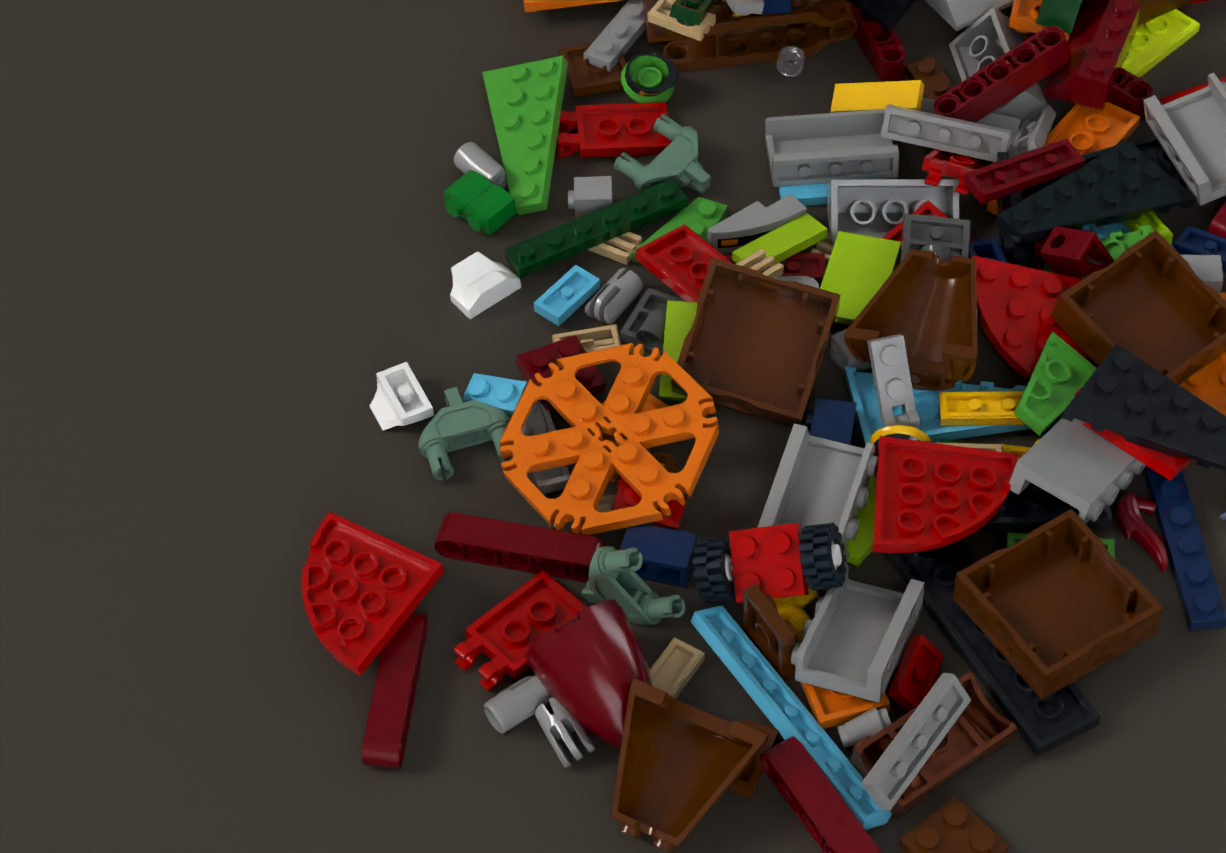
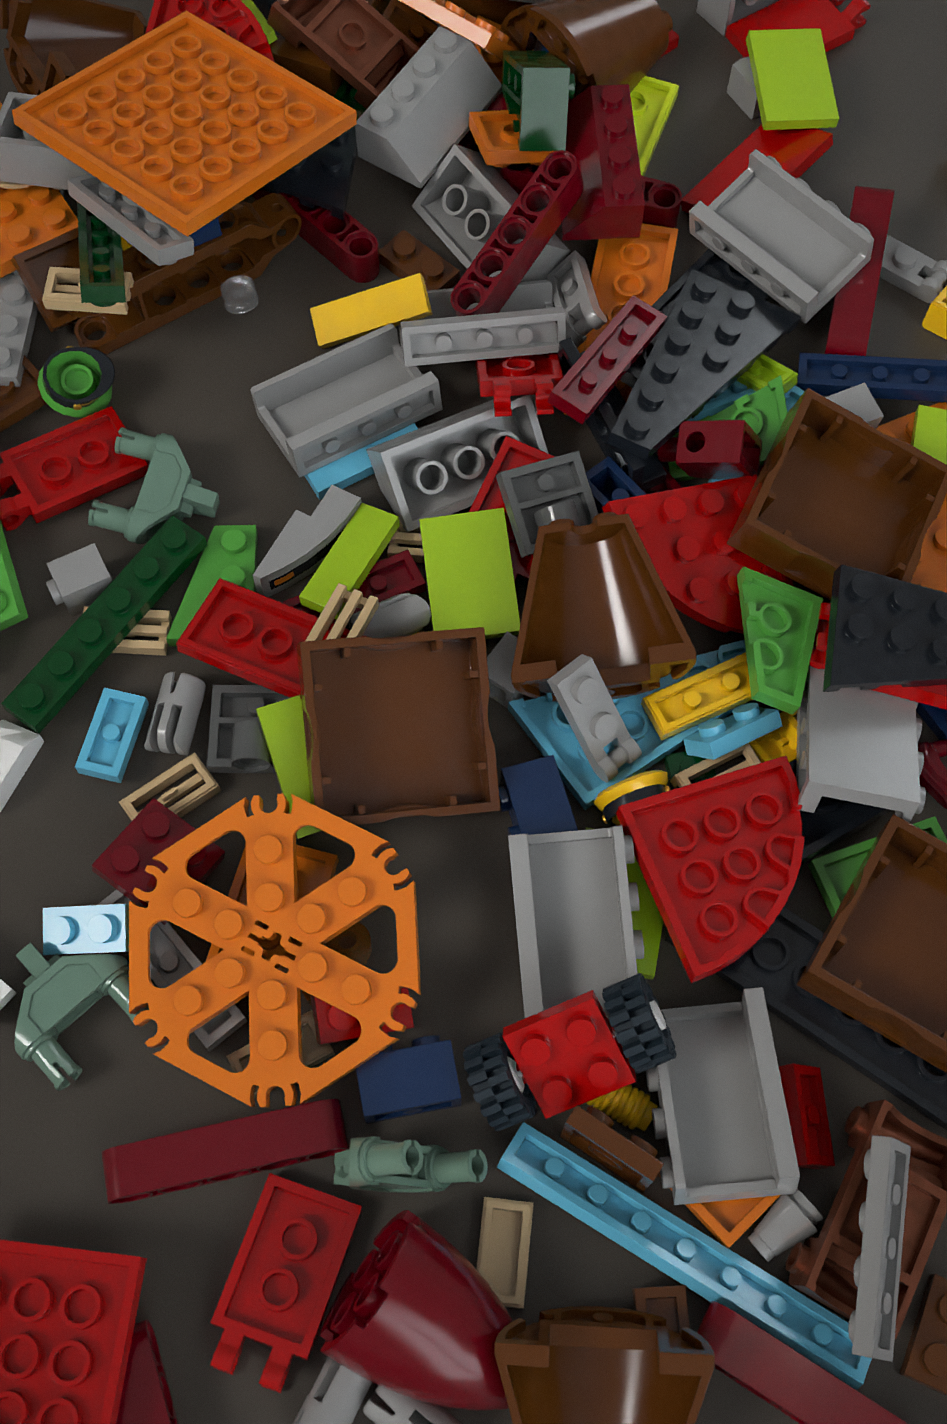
camera: 30 degrees left, 15 degrees up
(980, 434) = (727, 734): none -> medium azure plate

